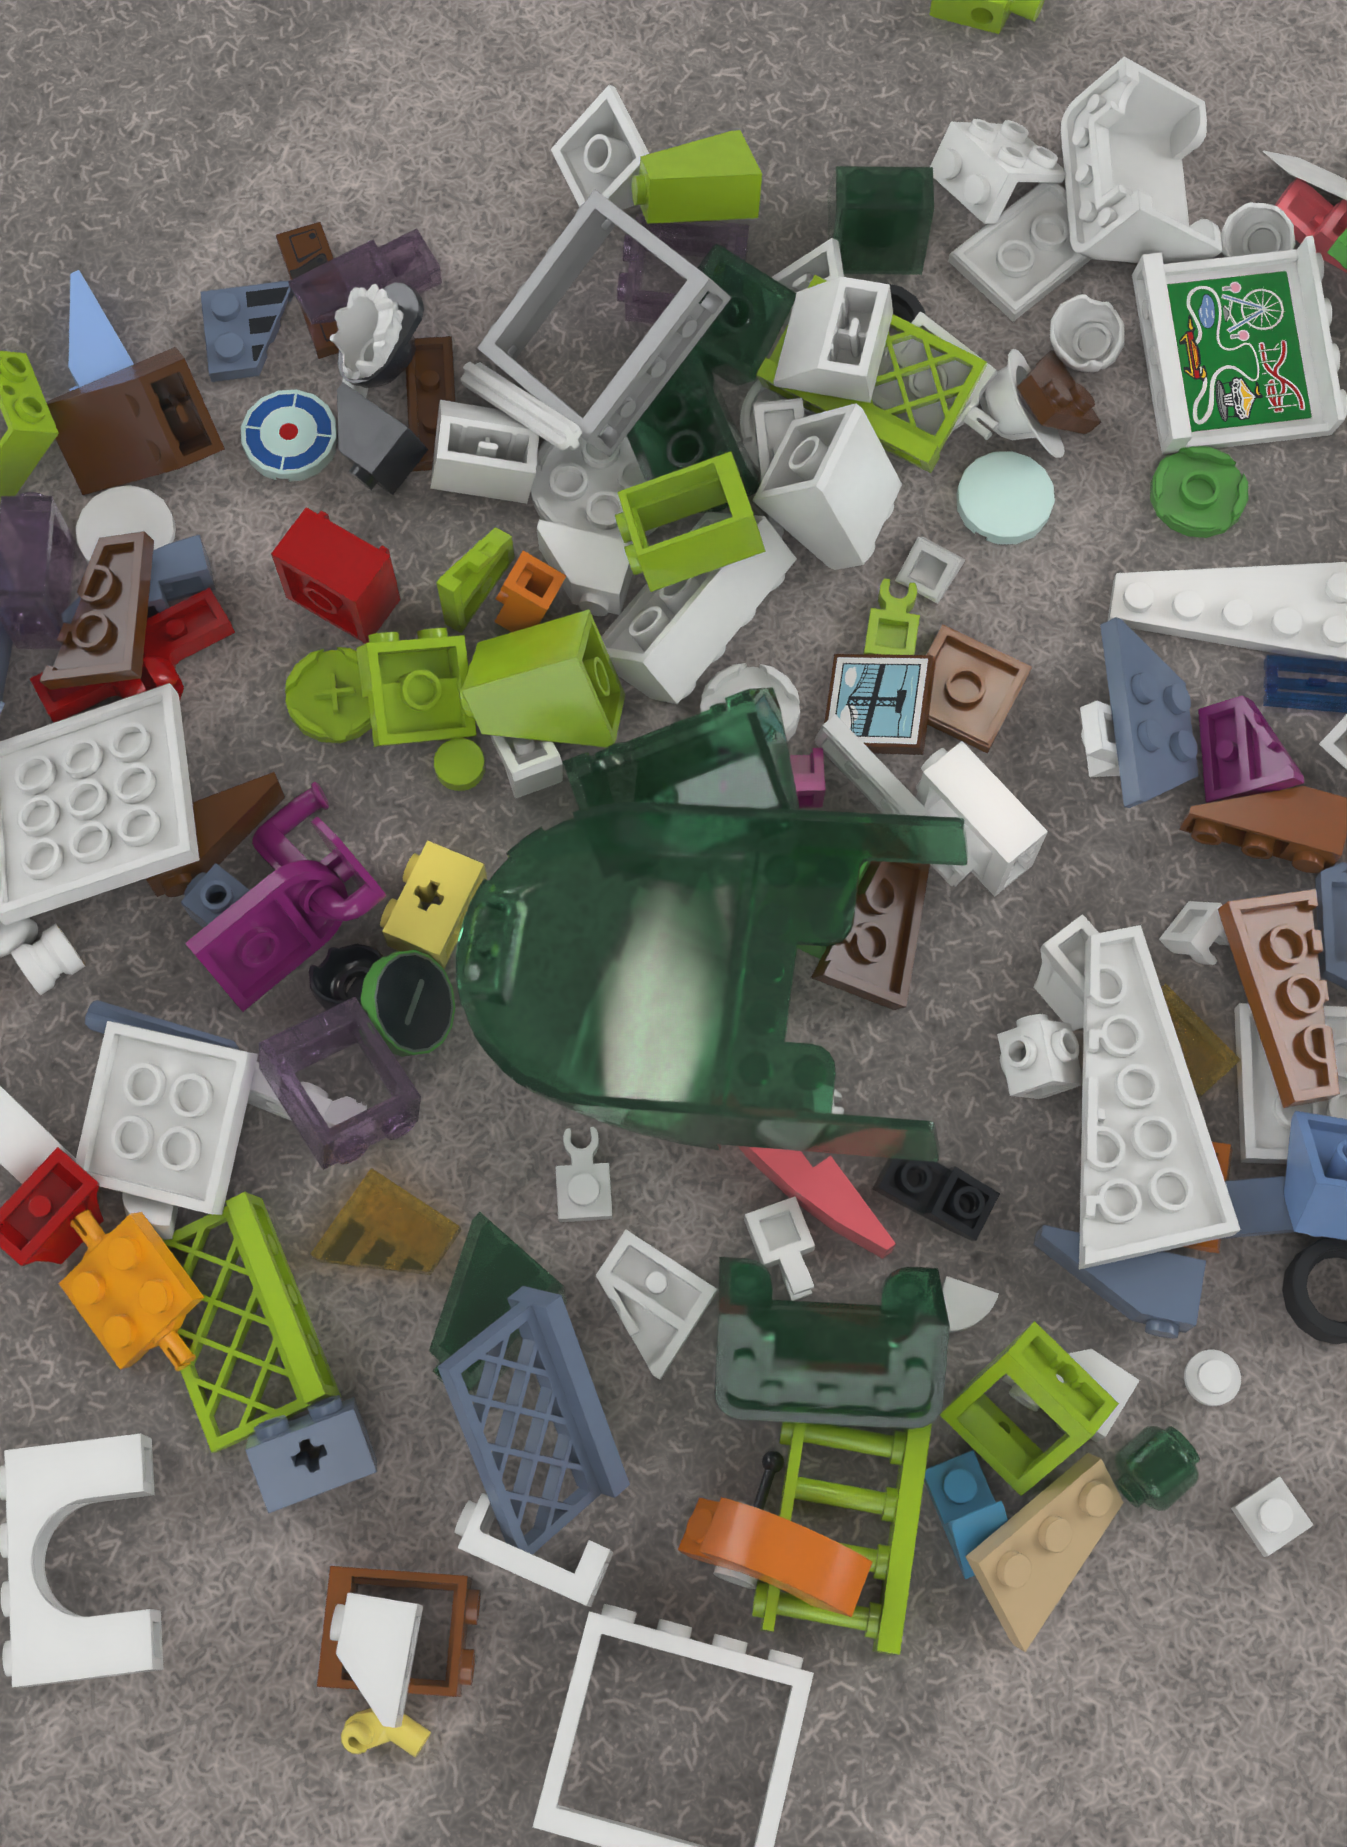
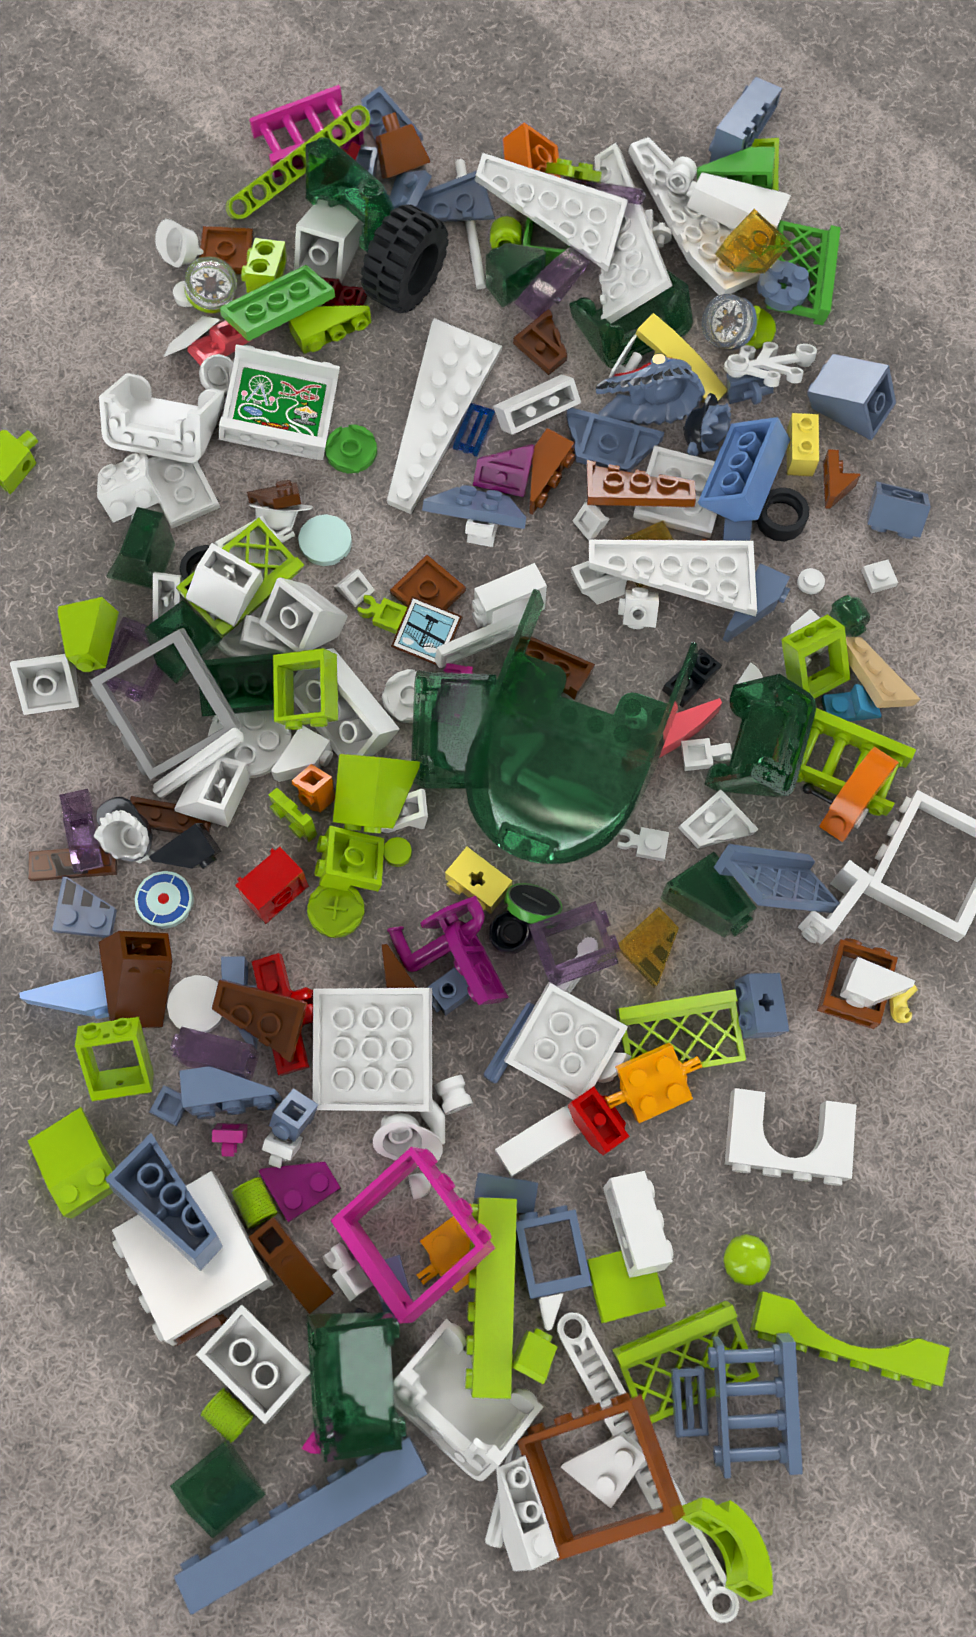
camera: 75 degrees left, 0 degrees up
(1090, 326) = (246, 471): white hair -> none

